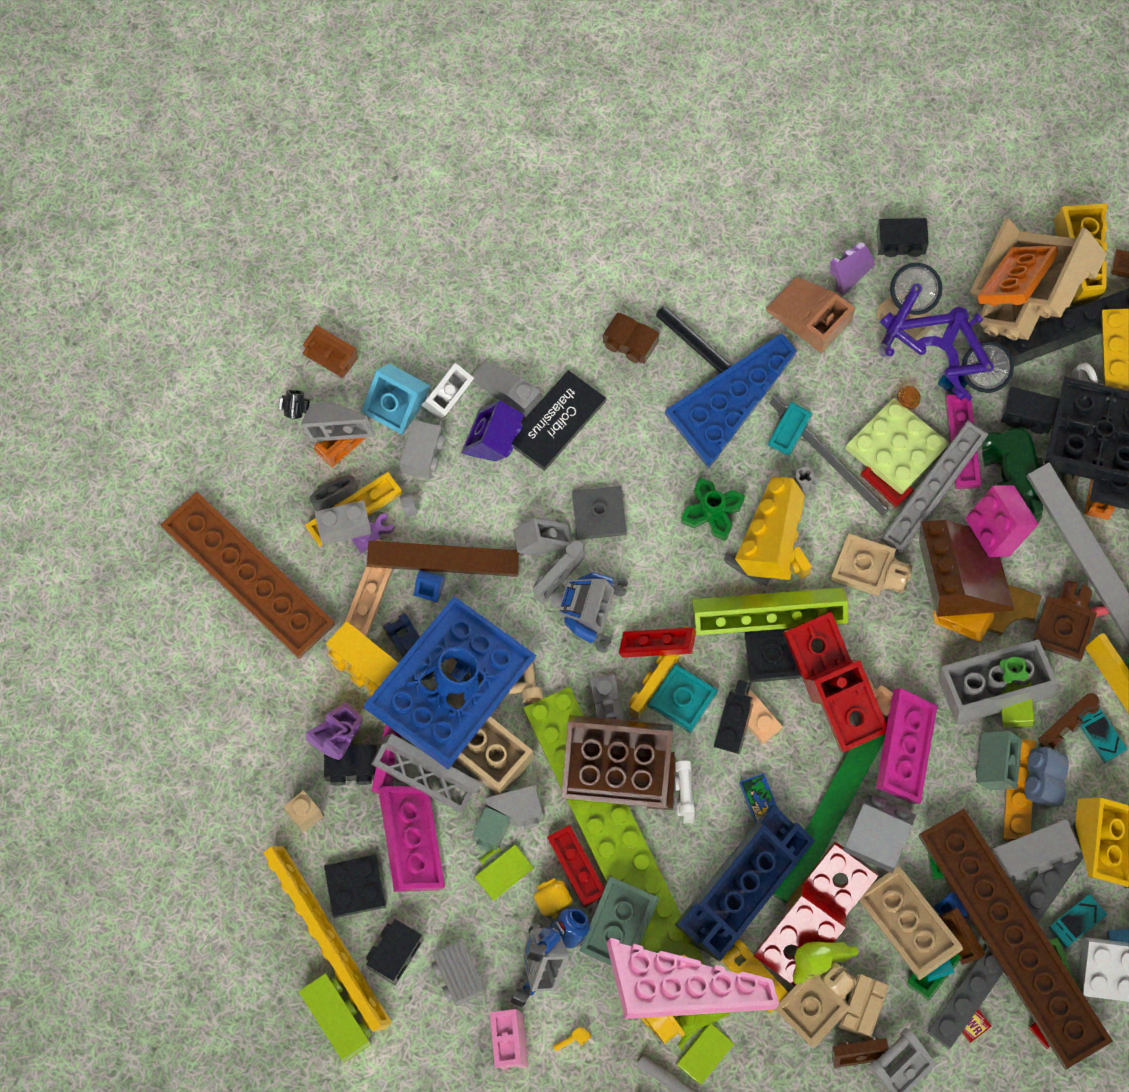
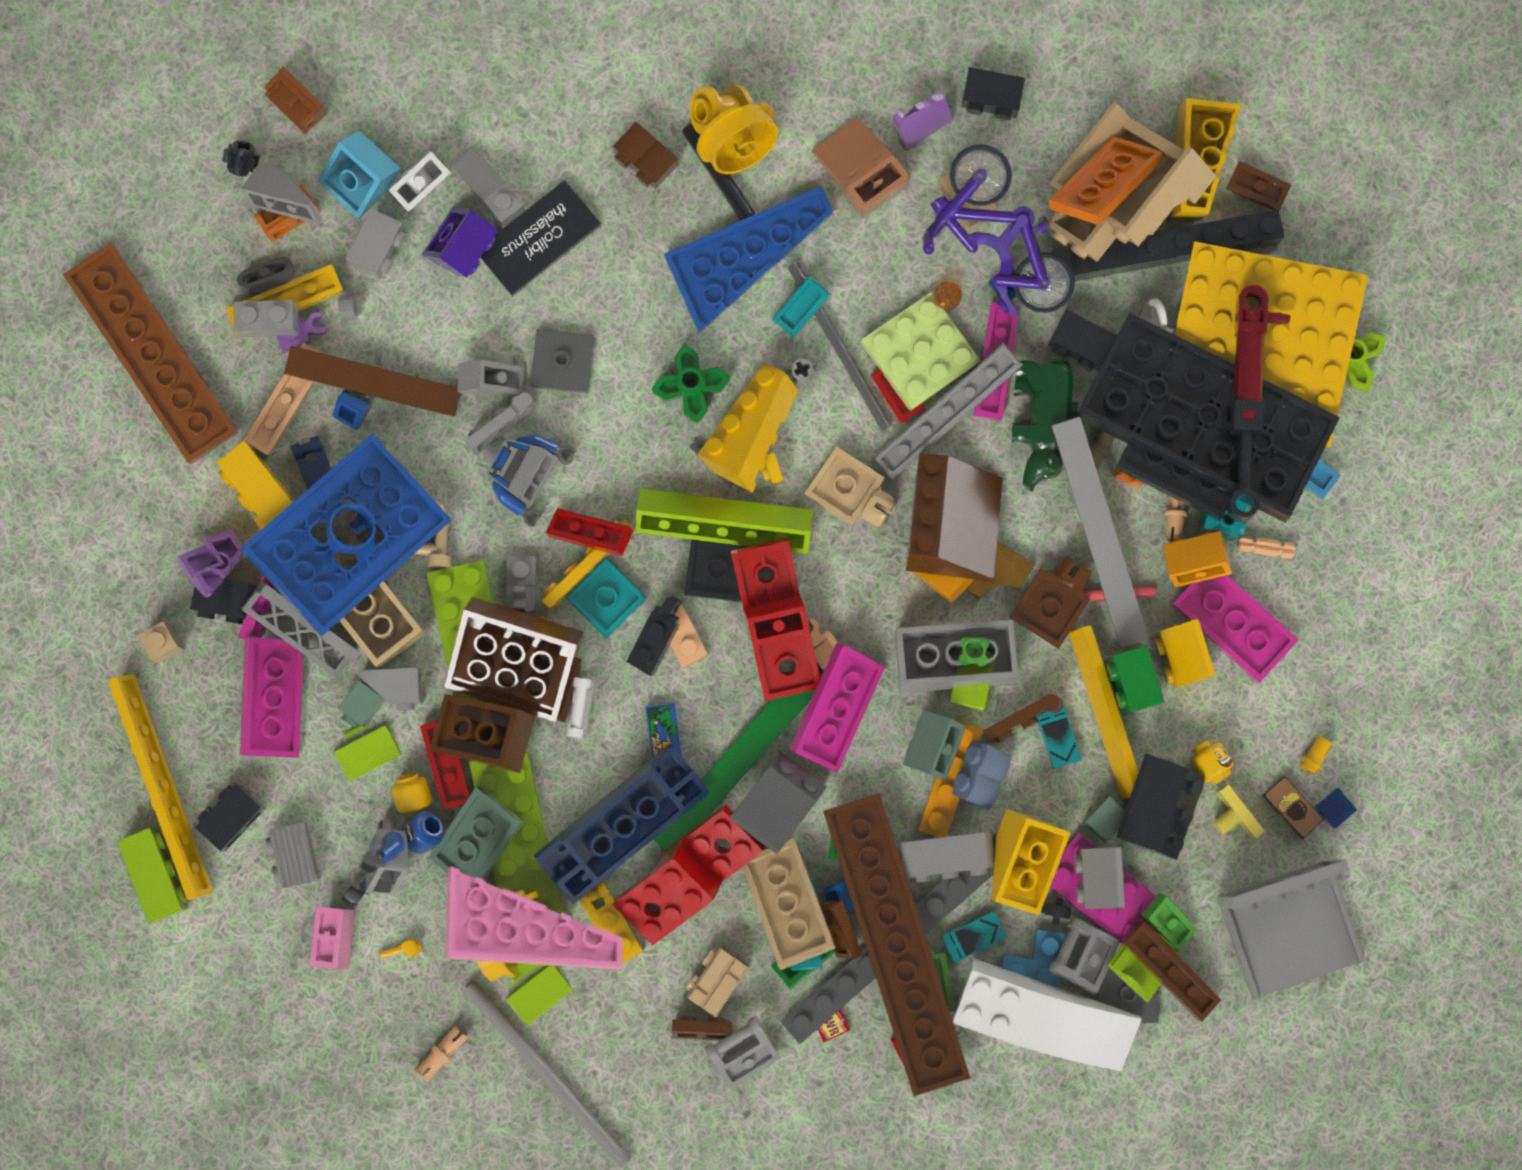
camera: 10 degrees right, 15 degrees up
(354, 886) = (202, 735): black plate -> none
(605, 828) = (482, 732): none -> reddish brown slope
(701, 299) = (732, 128): none -> yellow piece
(816, 958) = (675, 925): lime animal -> none
(818, 1003) = (668, 969): tan plate -> none
(1001, 521) = (1009, 472): dark pink brick -> none

